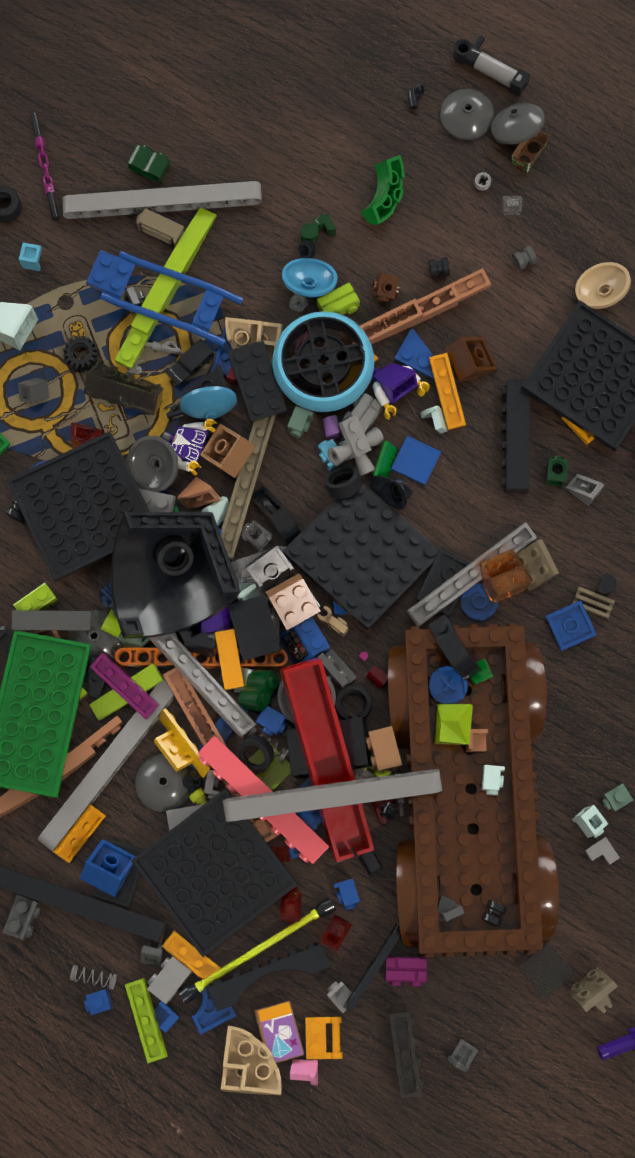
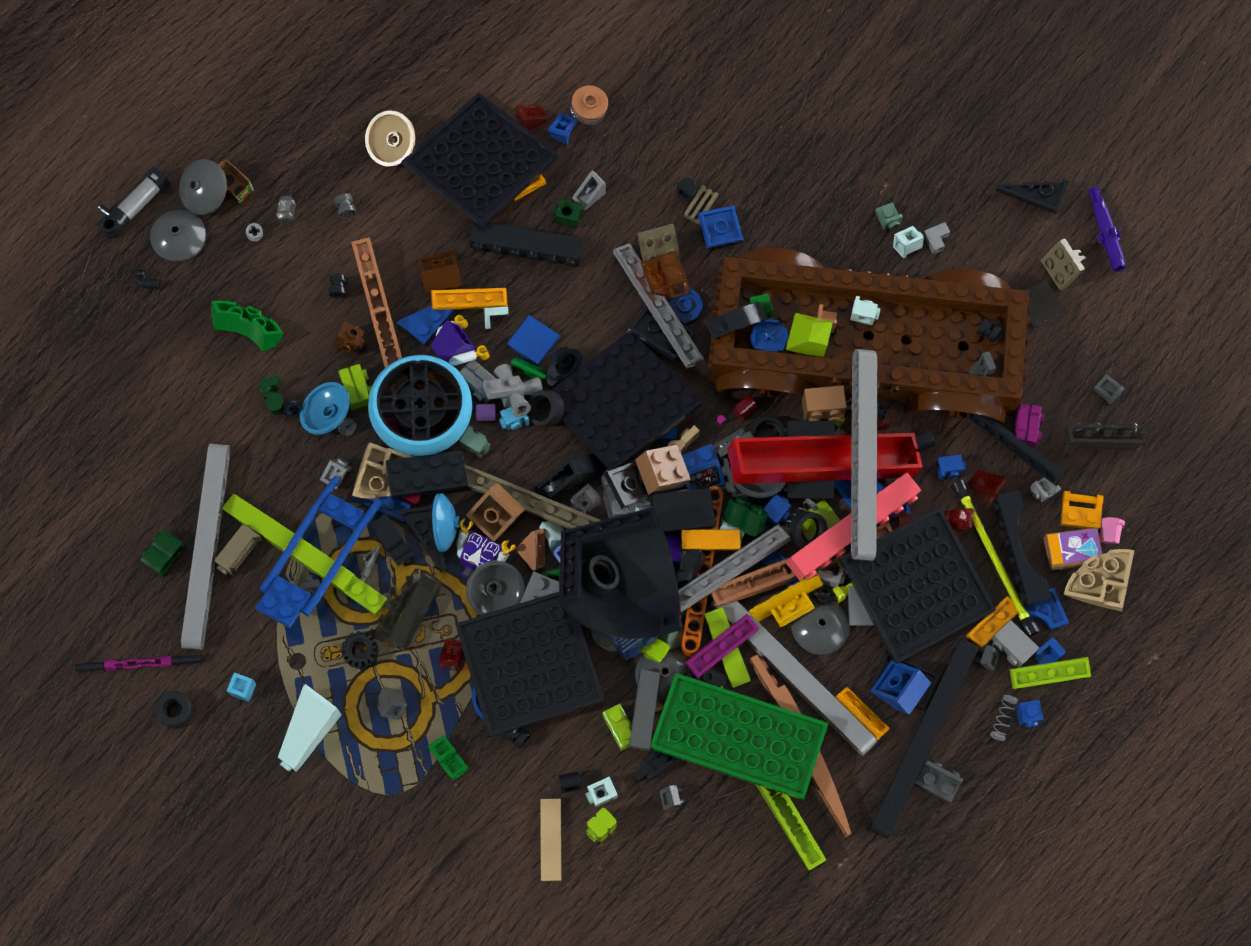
camera: 85 degrees left, 5 degrees down
(251, 301) = (337, 468): none -> light grey bracket

